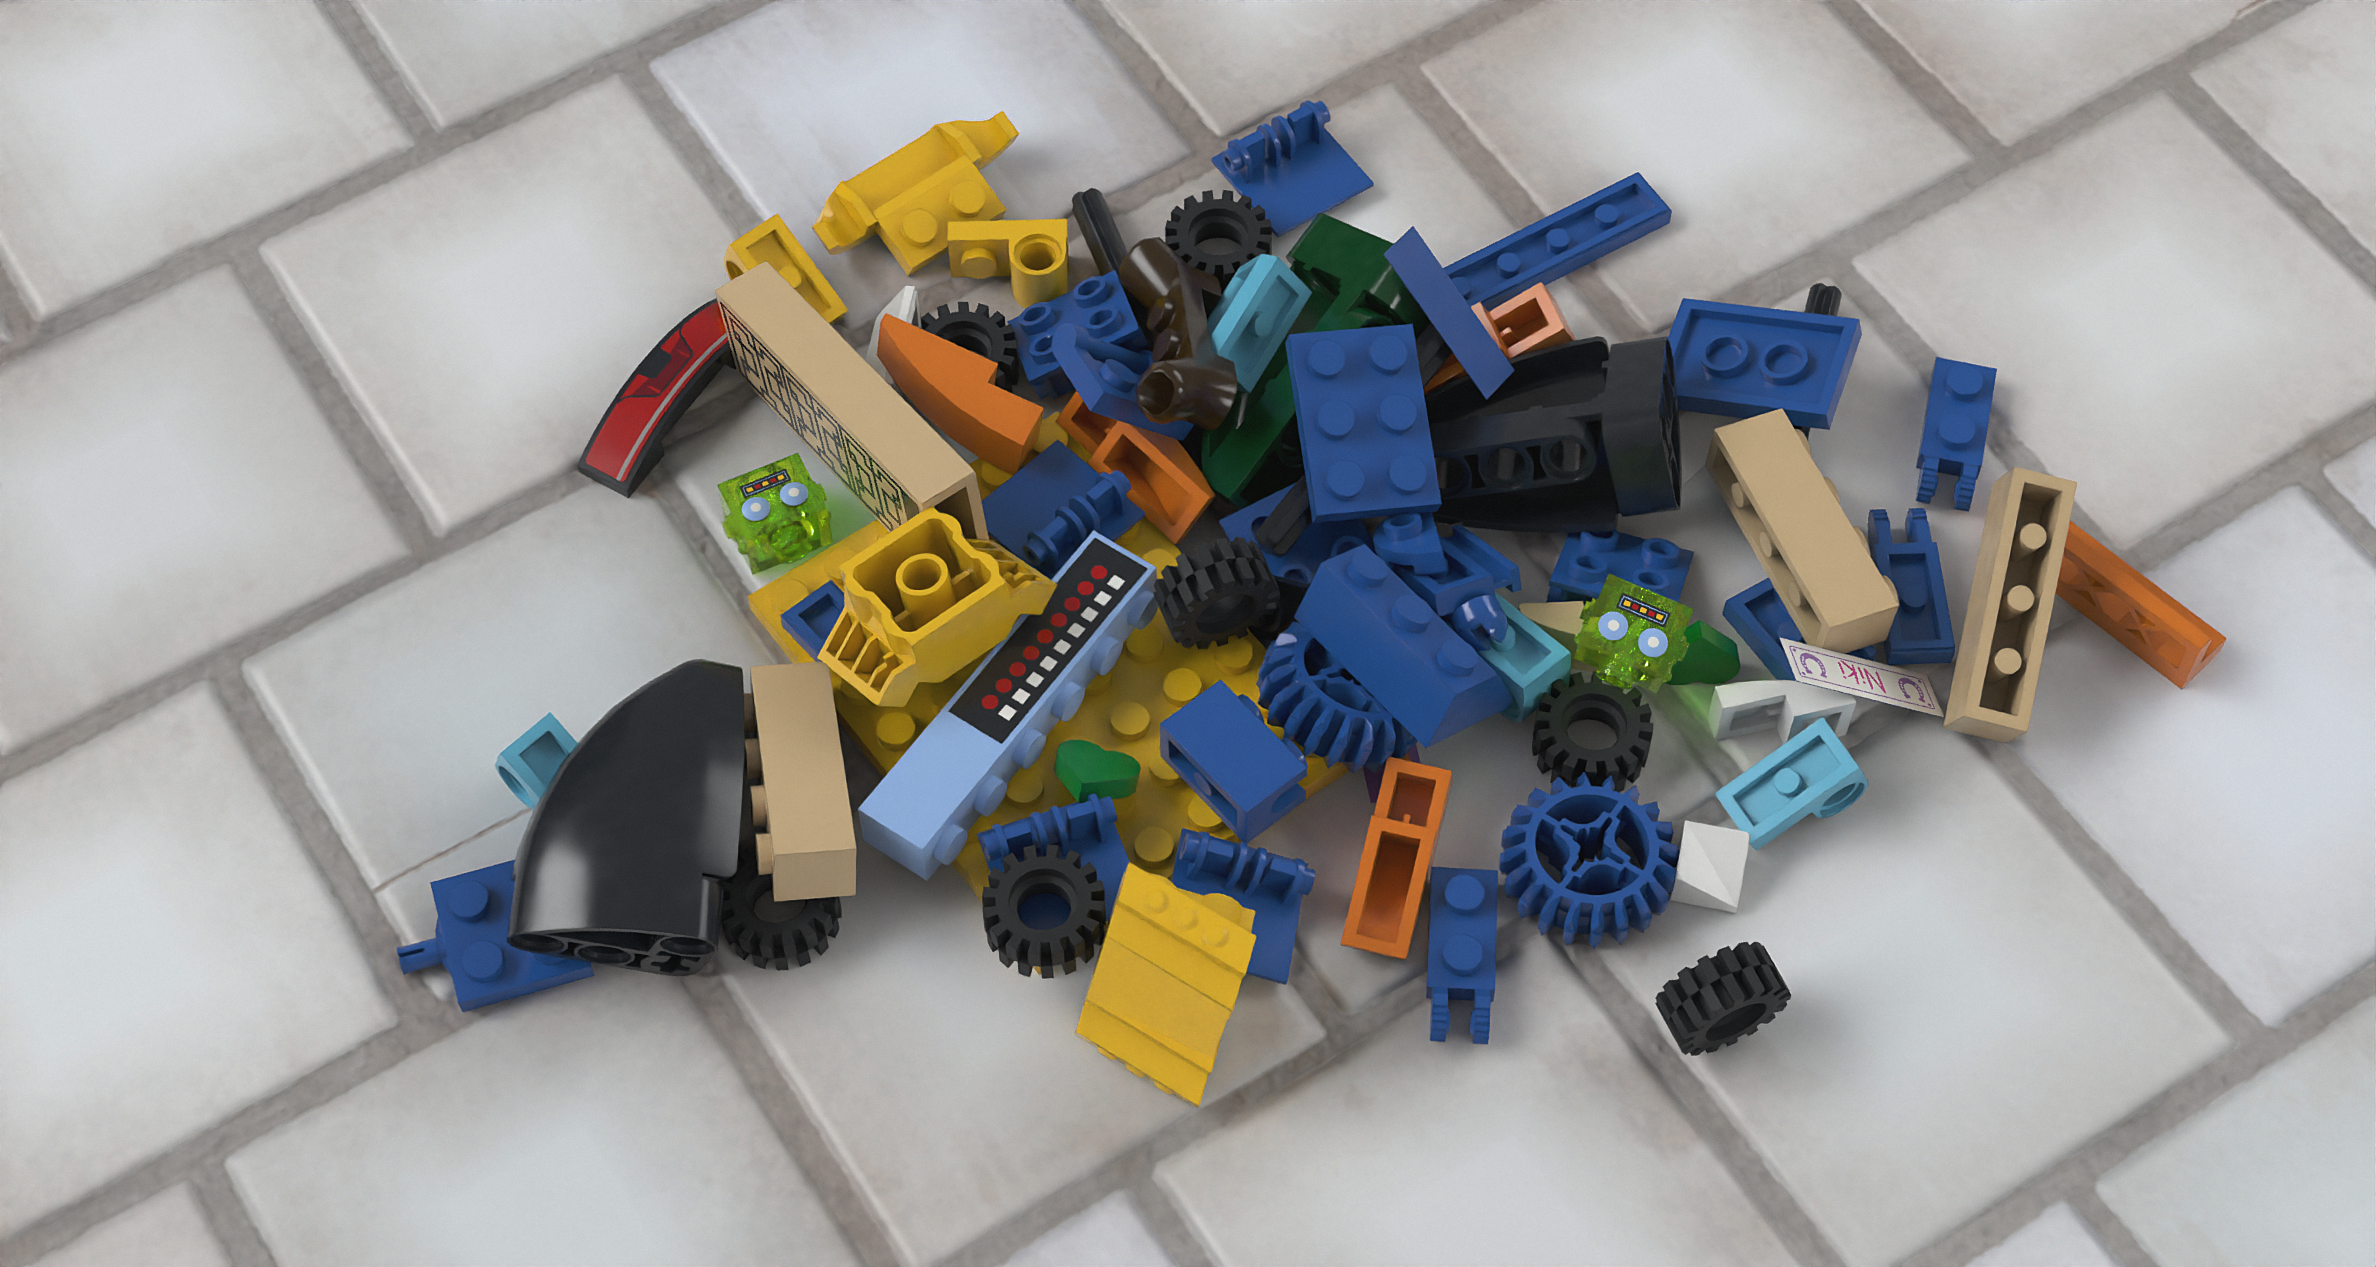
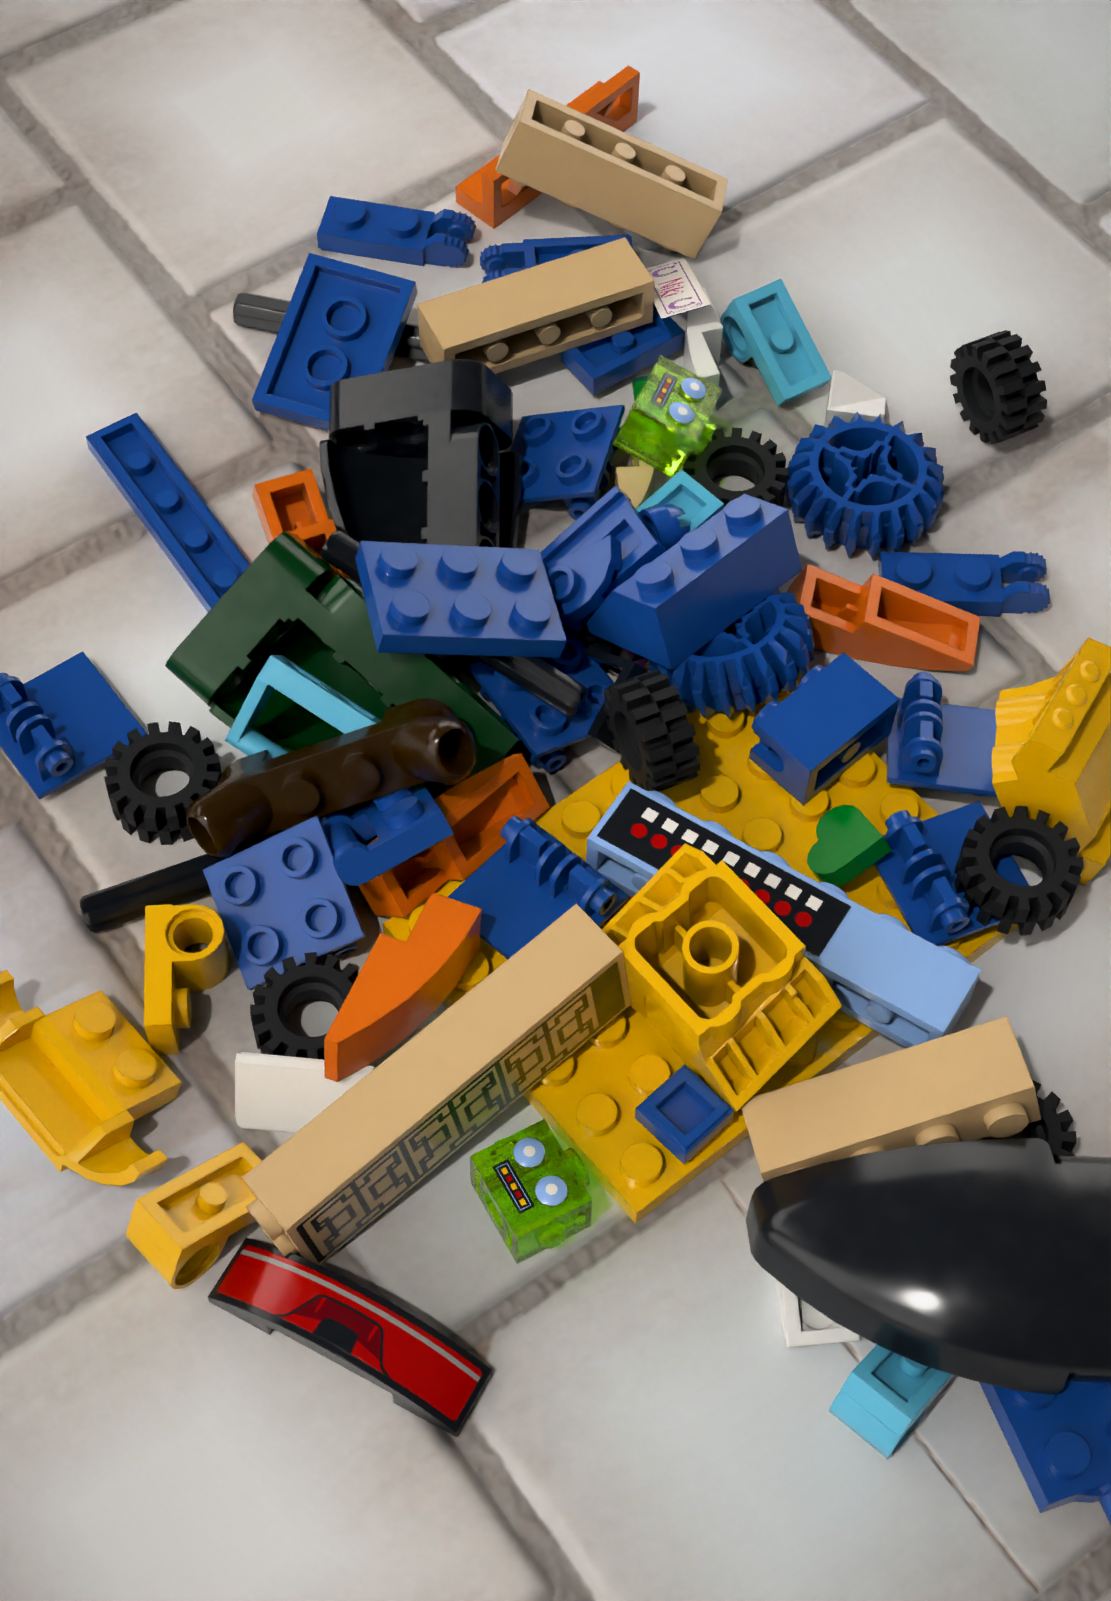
camera: 95 degrees left, 0 degrees up
(1449, 312) = (323, 528): blue sticker -> none

